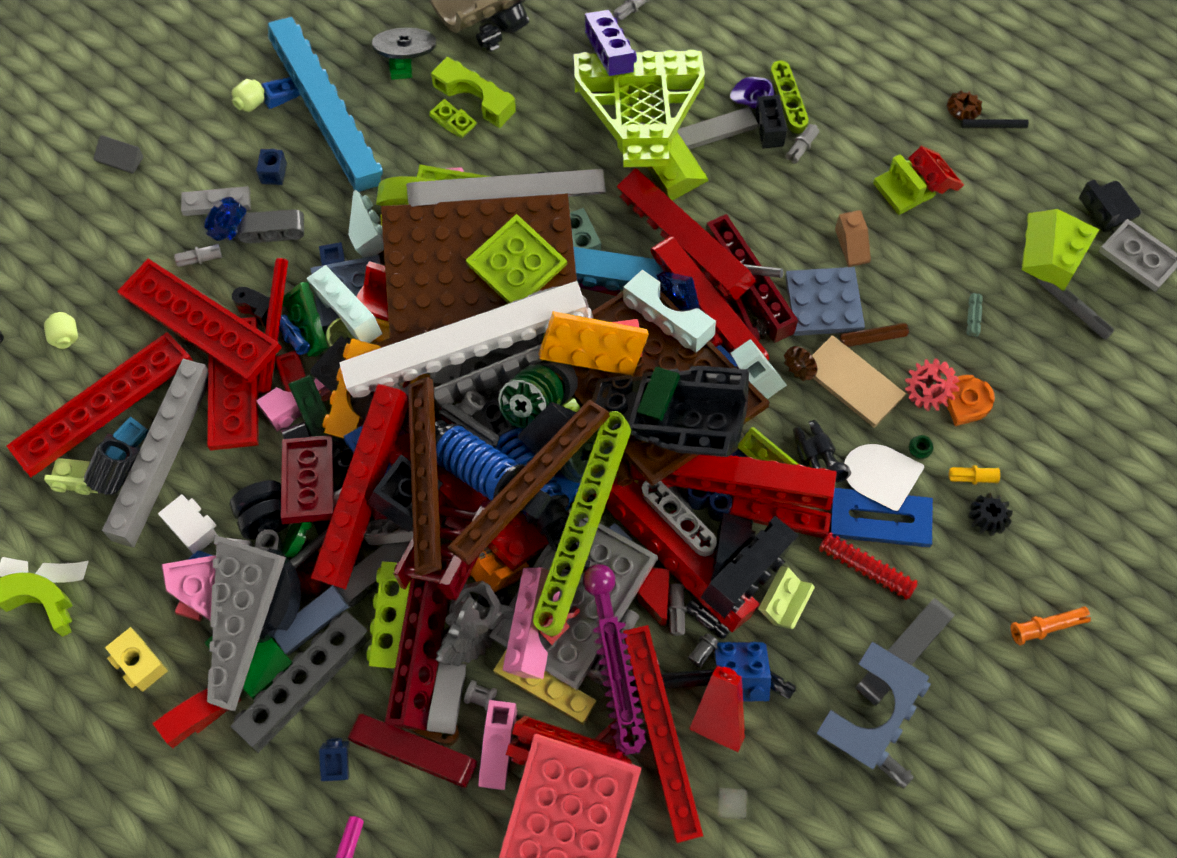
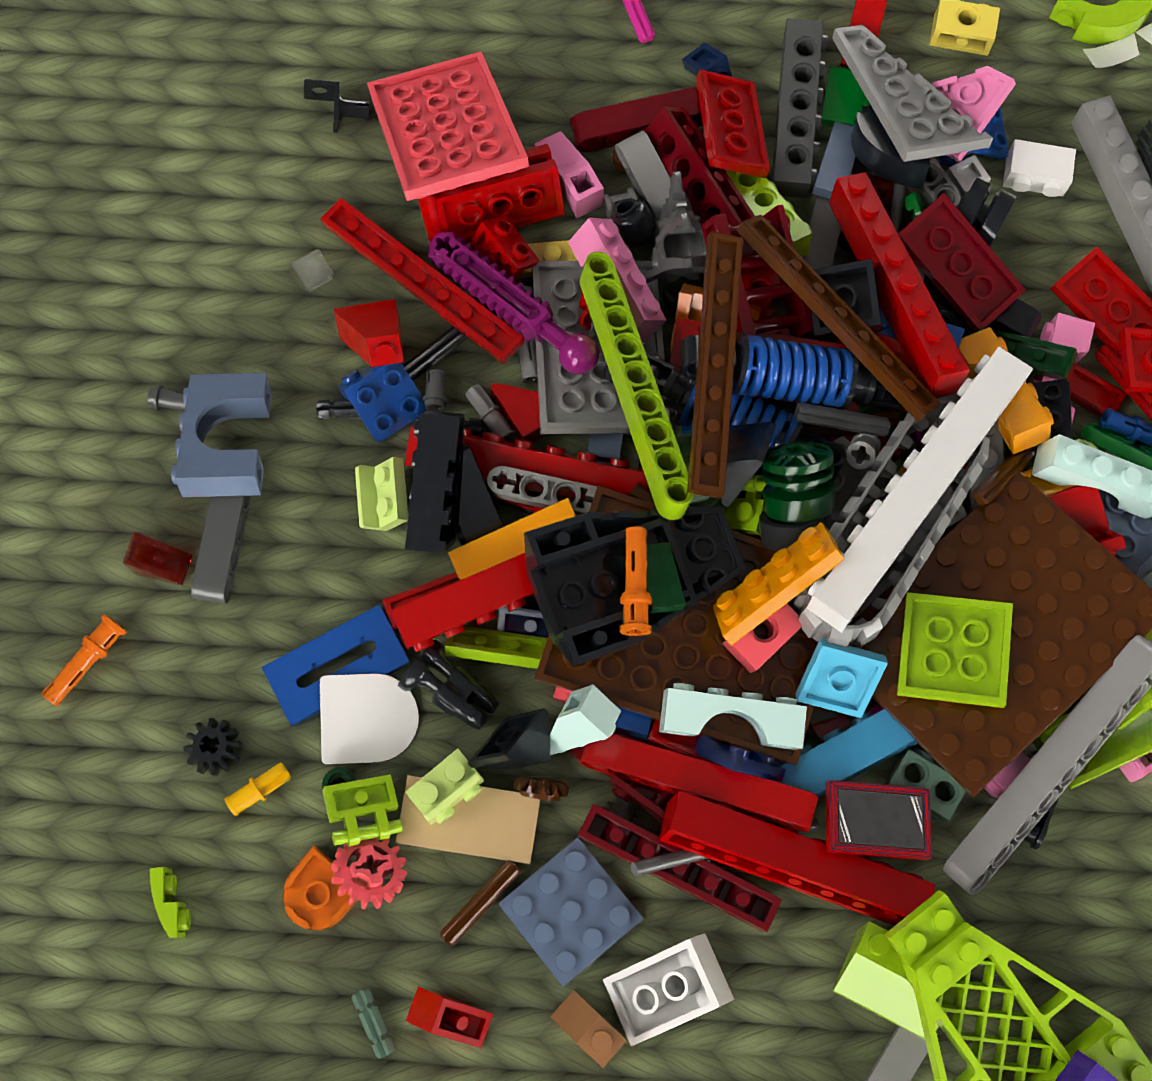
camera: 145 degrees right, 10 degrees up
(361, 688) = (732, 124): none -> red tile
(485, 668) = (633, 221): none -> black head
(589, 708) = (504, 246): none -> red bracket
(594, 291) = (841, 678): none -> medium azure plate
(625, 224) = (878, 820): none -> tile
(683, 384) = (636, 596): none -> orange pin
(721, 501) = (506, 541): none -> light orange tile
(796, 230) = (668, 989): none -> white slope
(802, 391) = (516, 743): none -> black slope
(857, 398) = (445, 787): none -> yellowish green bracket
(868, 566) = (316, 593): red piece -> none
(915, 422) = (362, 799): none -> lime plate
(930, 289) = (449, 1017): none -> red slope
(965, 656) = (156, 559): none -> clear red slope
(1066, 442) = (172, 915): none -> lime slope

